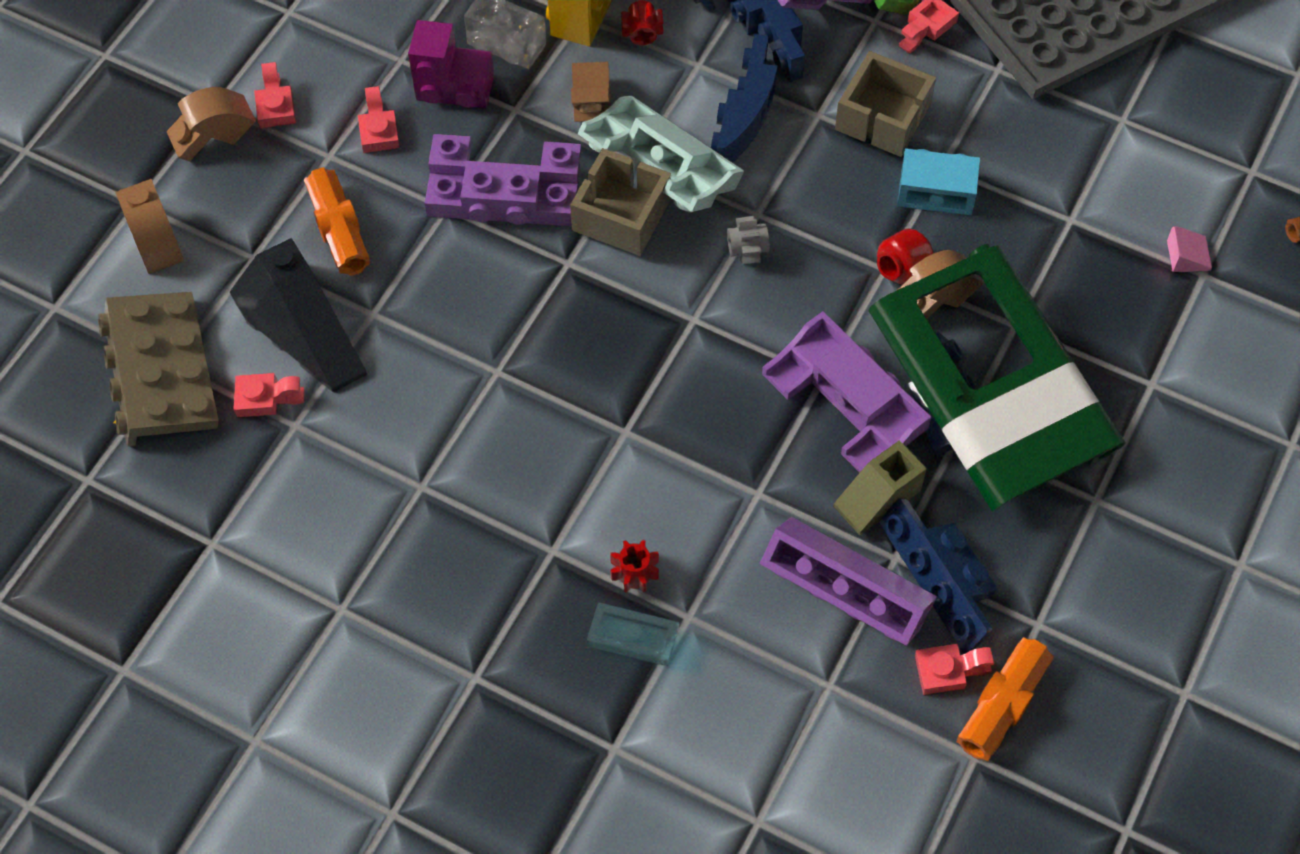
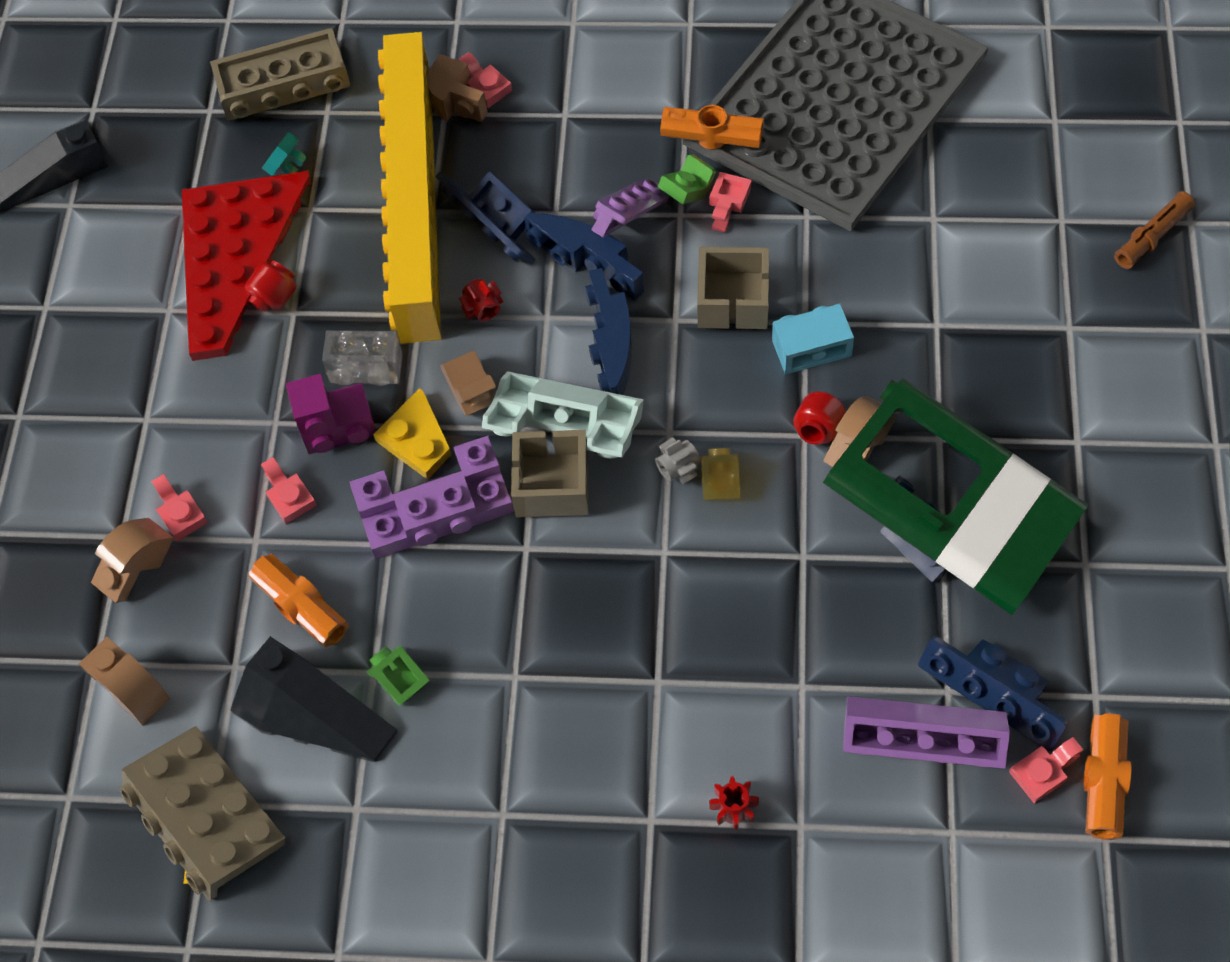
camera: 20 degrees left, 0 degrees up
(262, 392) = (310, 795): coral plate -> none
(390, 321) = (397, 673): none -> bright green bracket
(519, 121) = (415, 436): none -> yellow wing
(633, 634) = (764, 866): clear light blue plate -> none
(781, 269) = (720, 475): none -> clear yellow bracket
(853, 384) = (839, 554): medium lavender bracket -> none
(879, 485) = (908, 636): olive slope -> none
(1188, 251) = (1047, 312): bright pink slope -> none

